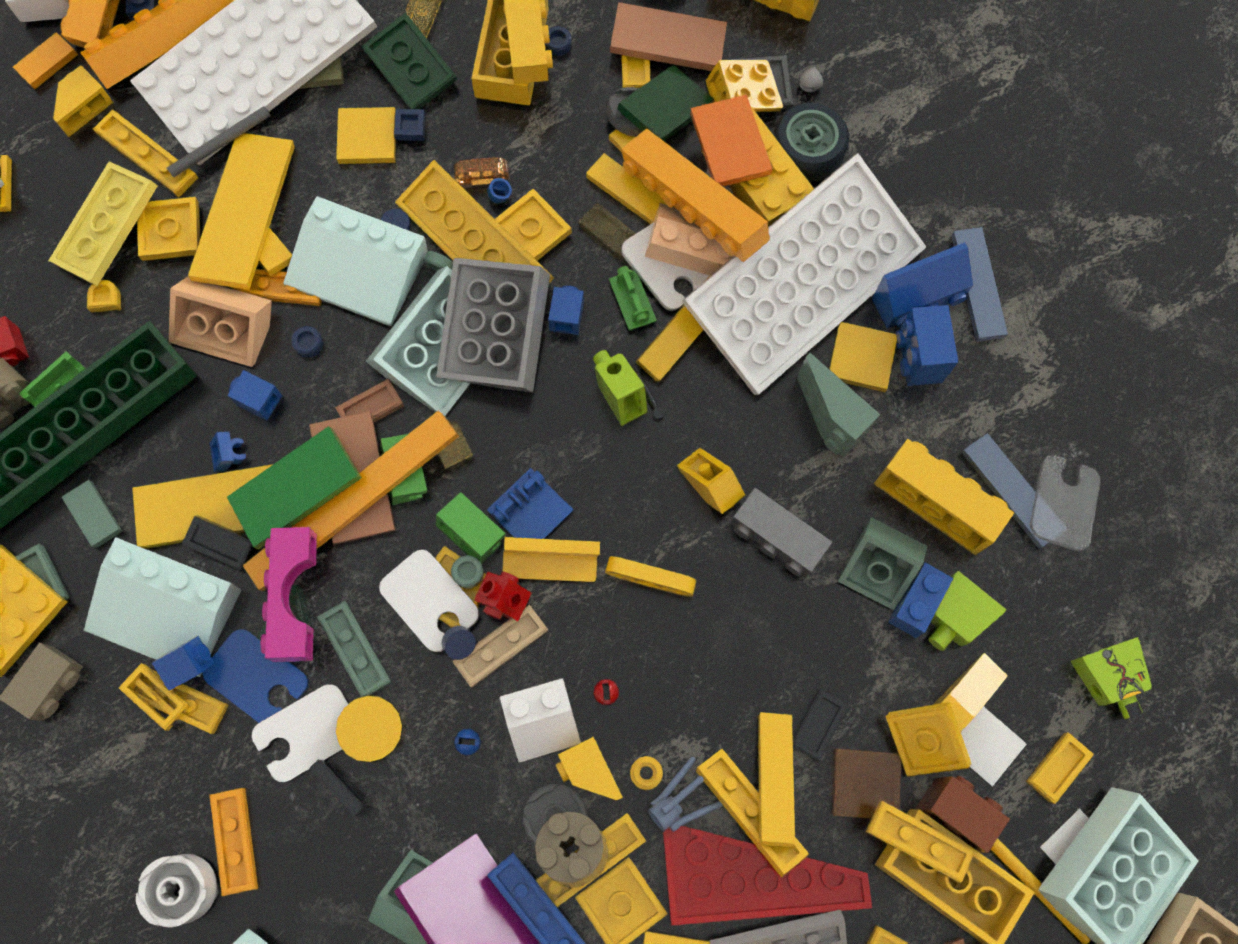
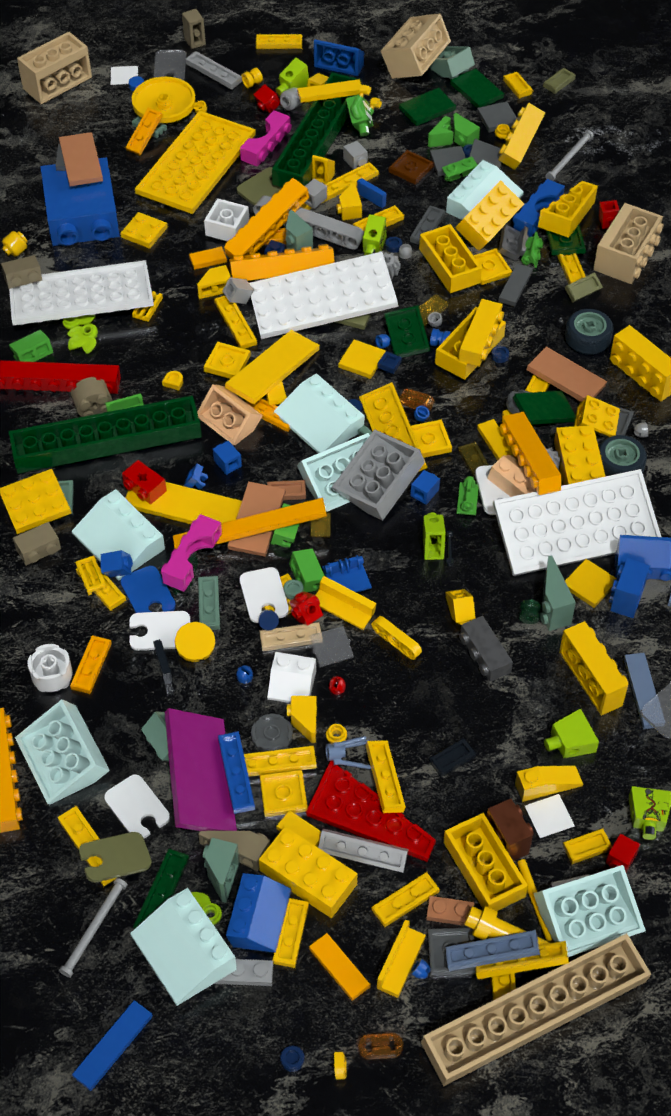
camera: 30 degrees right, 20 degrees down
(92, 514) = (107, 477): sand green tile -> none
(103, 223) = (194, 343): light yellow plate -> none
(122, 101) = (238, 290): none -> light grey brick
(137, 491) = (144, 482): none -> red brick
(218, 141) = (278, 329): dark grey bar -> none
(218, 542) = (166, 518): black tile -> none
(294, 486) = (224, 503): green tile -> none
(307, 341) = (270, 445): dark blue tile -> none
(381, 93) = (382, 341): none -> blue hinge
(433, 23) = (432, 319): none -> light grey hinge
(462, 52) = (438, 337): none -> blue wheel
(563, 831) = (272, 742): dark tan brick -> none
(567, 634) = (331, 646): none -> clear piece
(670, 344) = (476, 529): yellow tile -> none
(731, 141) = (568, 435): orange tile -> none
(776, 780) = (408, 765): yellow tile -> none
(809, 444) = (529, 611): none -> clear green wheel
(863, 781) = (462, 799): clear orange tile -> none
(883, 563) = (538, 690): sand green slope -> none
(920, 841) = (473, 826): yellow tile -> none
(921, 601) = (542, 719): blue brick -> none
(928, 739) = (511, 782): yellow tile -> none
(1114, 761) = (622, 852): none -> red brick

